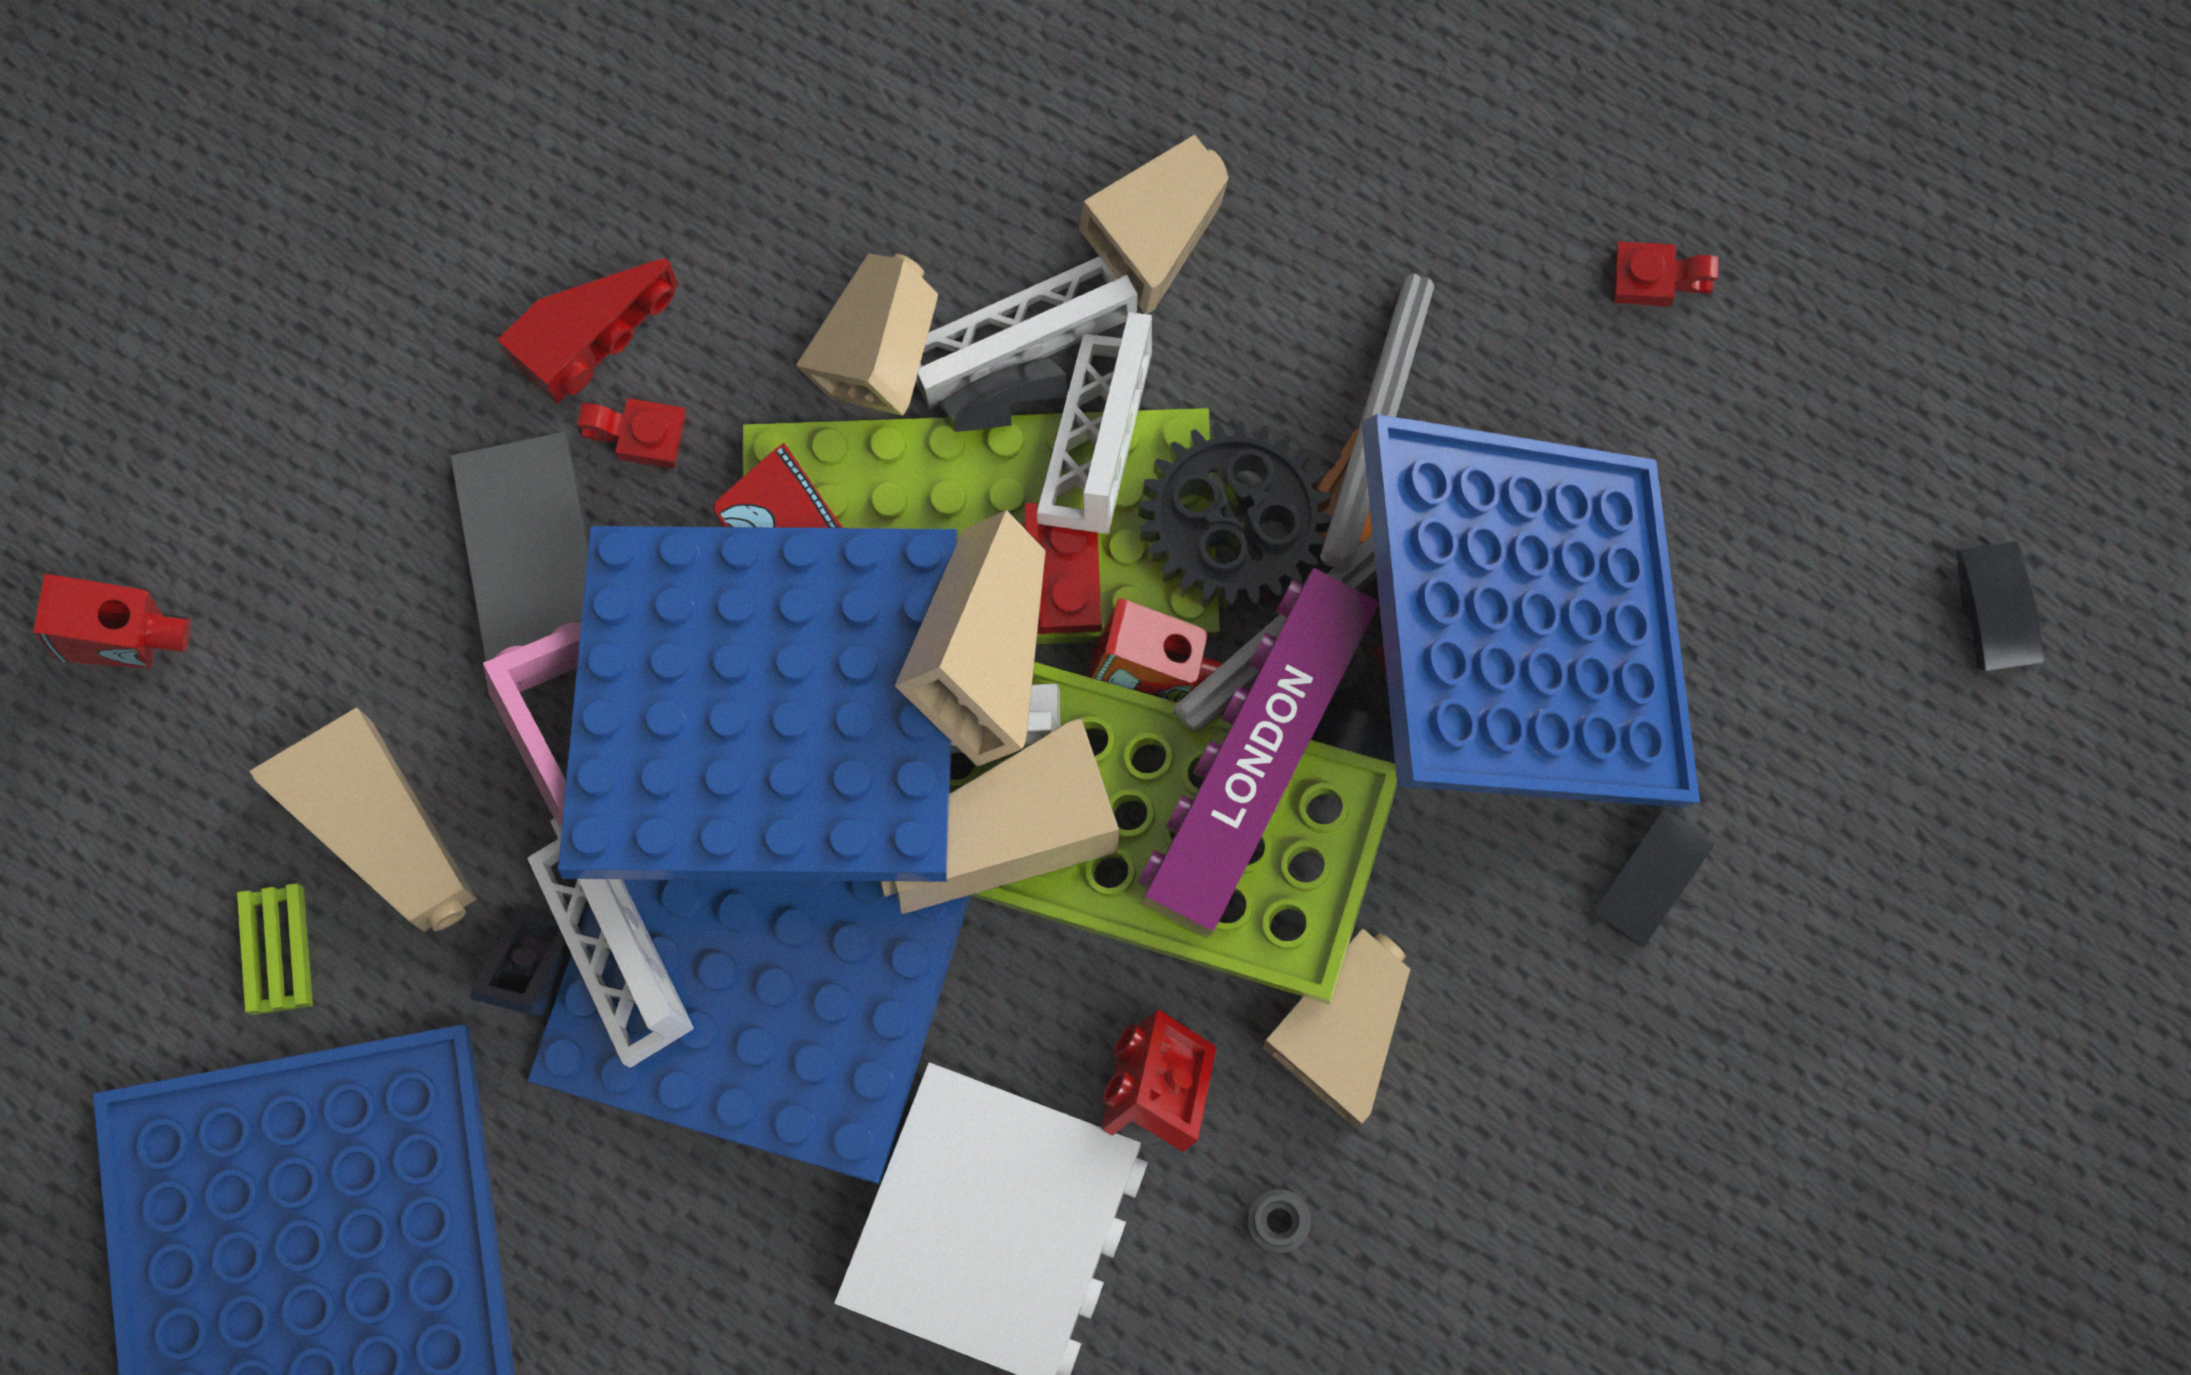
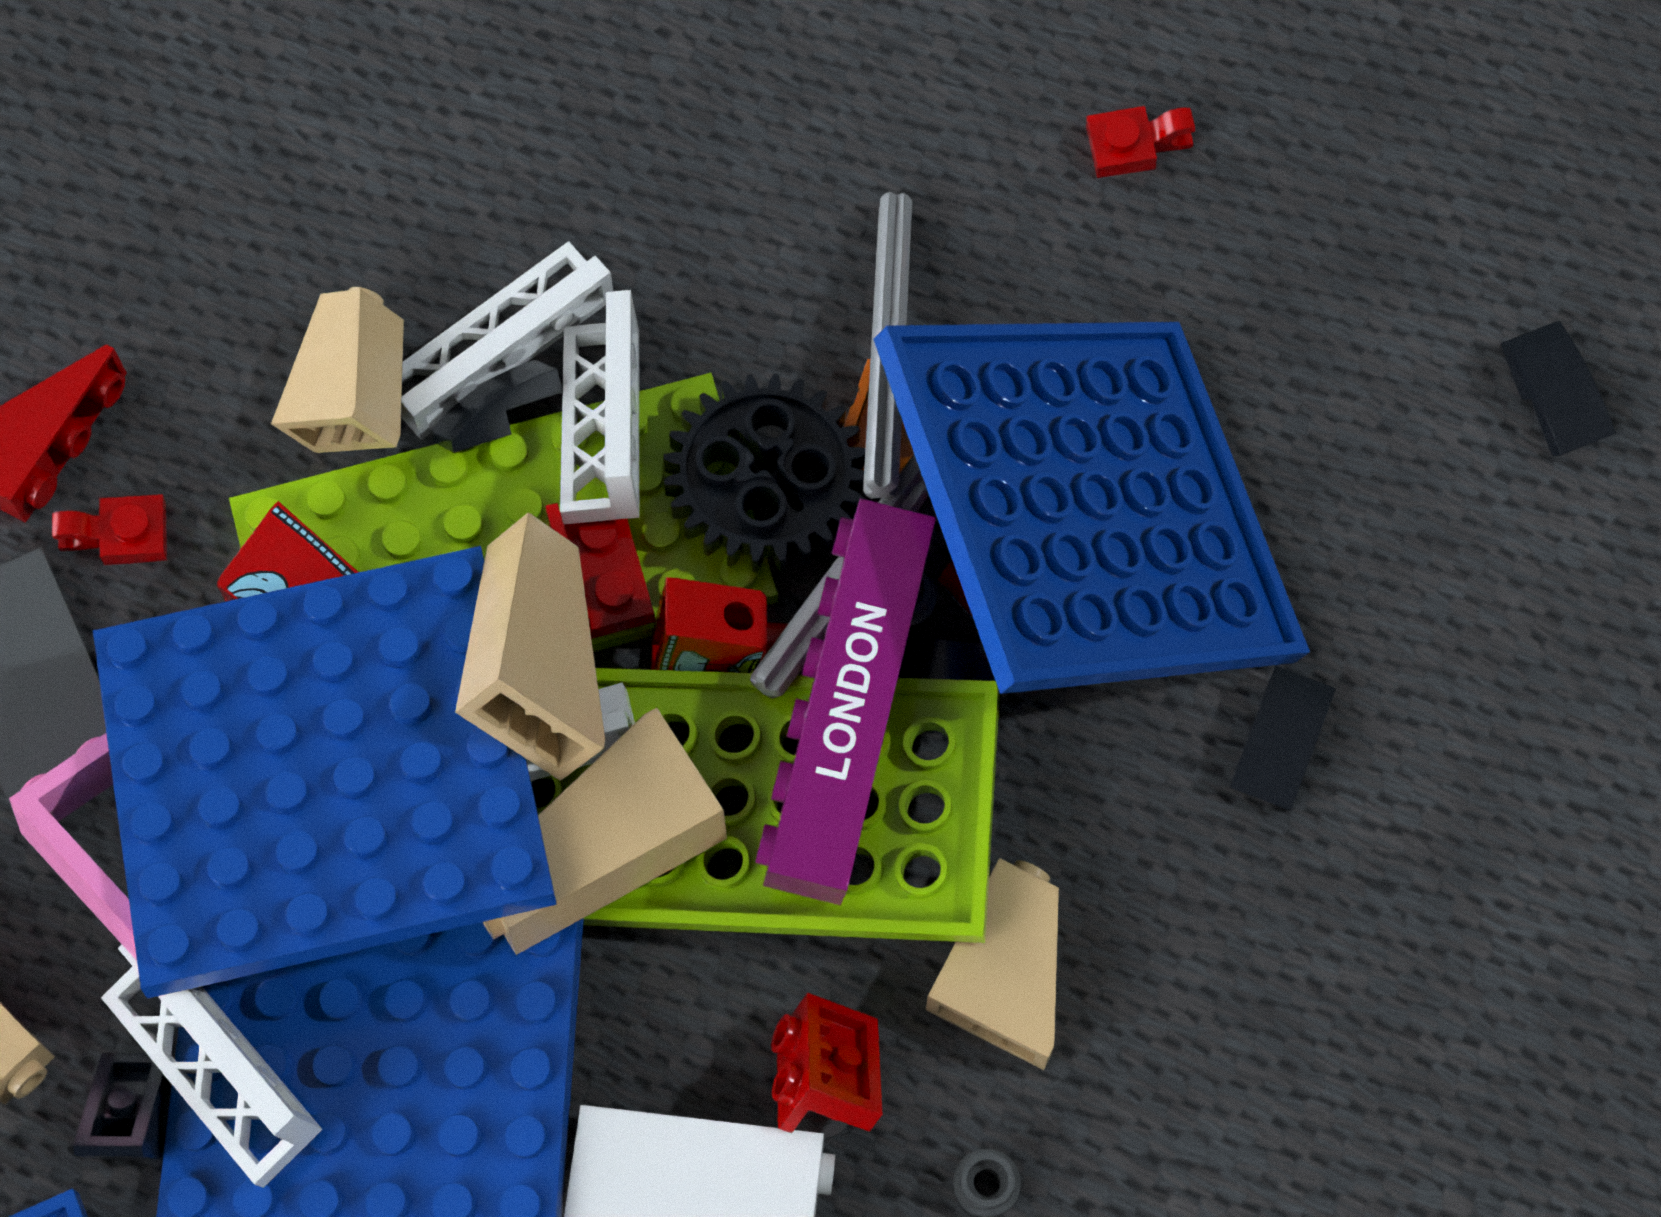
camera: 15 degrees left, 5 degrees down
(1155, 217) = (610, 193): tan slope -> none

